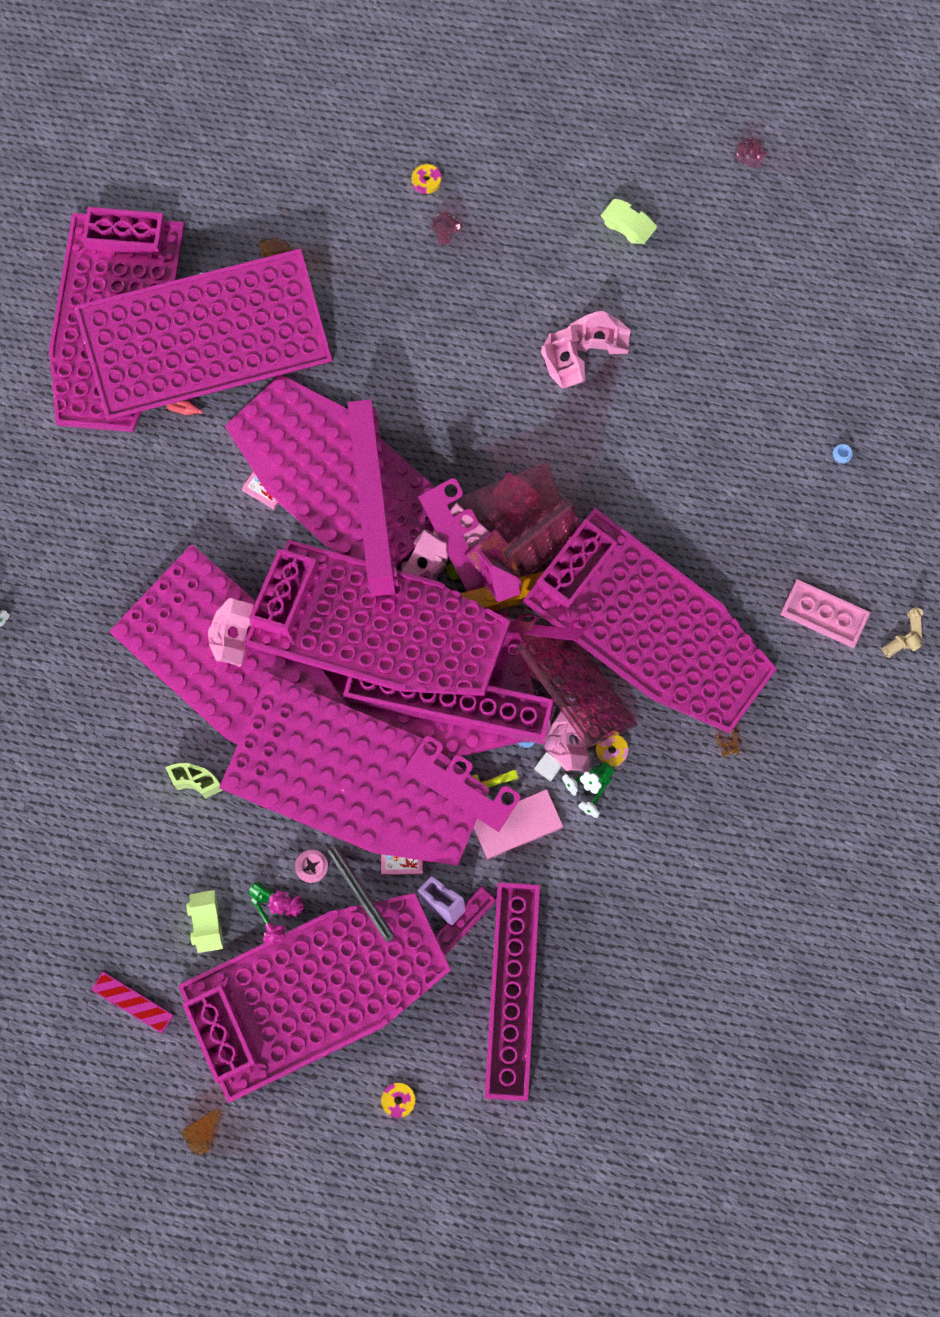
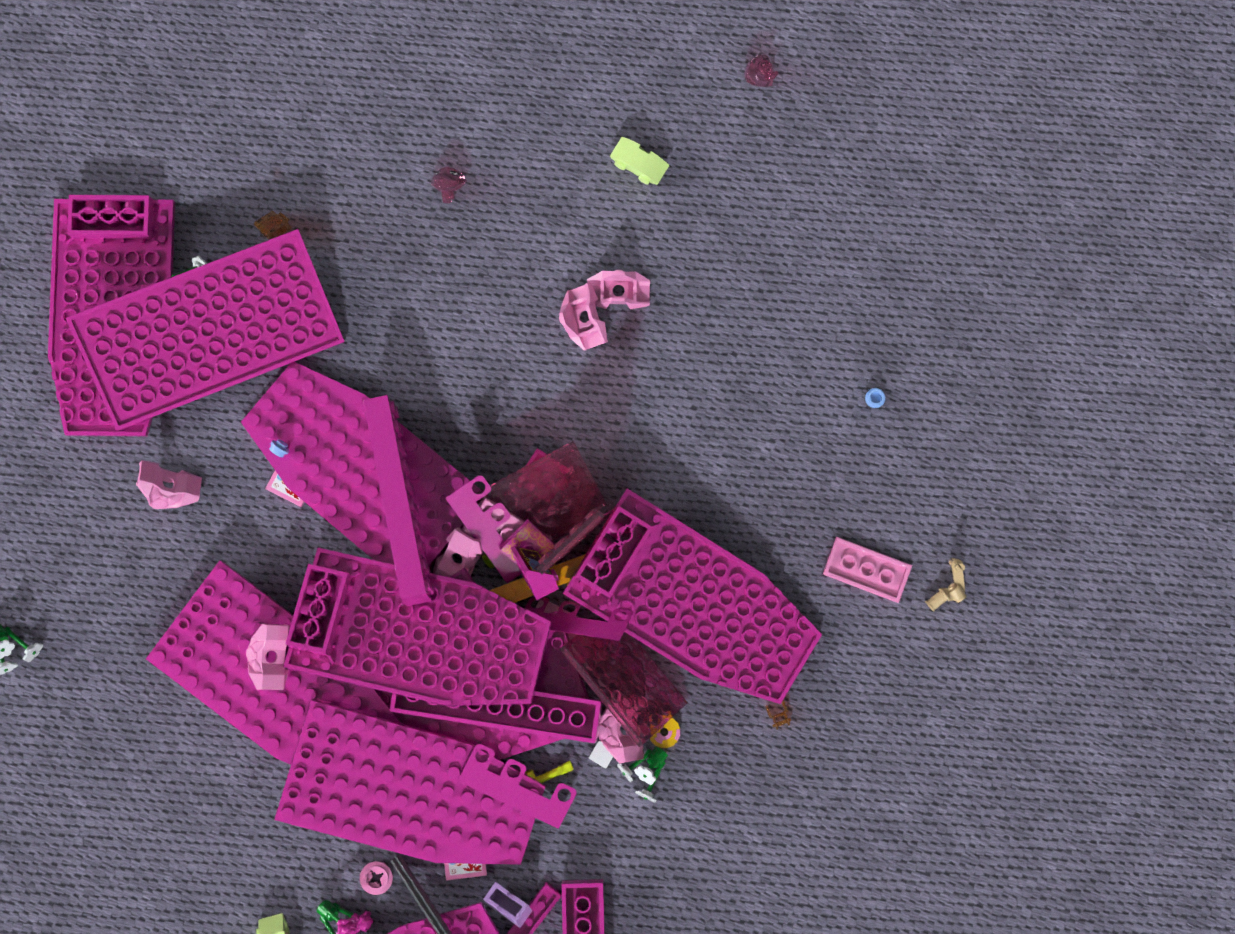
camera: 10 degrees left, 10 degrees up
(147, 478) = (184, 491): none -> bright pink piece
(184, 407) = (198, 406): coral piece -> none
(193, 777) = (249, 801): yellowish green brick -> none
(260, 447) = (279, 448): none -> light blue plate
(426, 186) = (424, 136): yellow piece -> none
(527, 822) = (589, 810): bright pink tile -> none

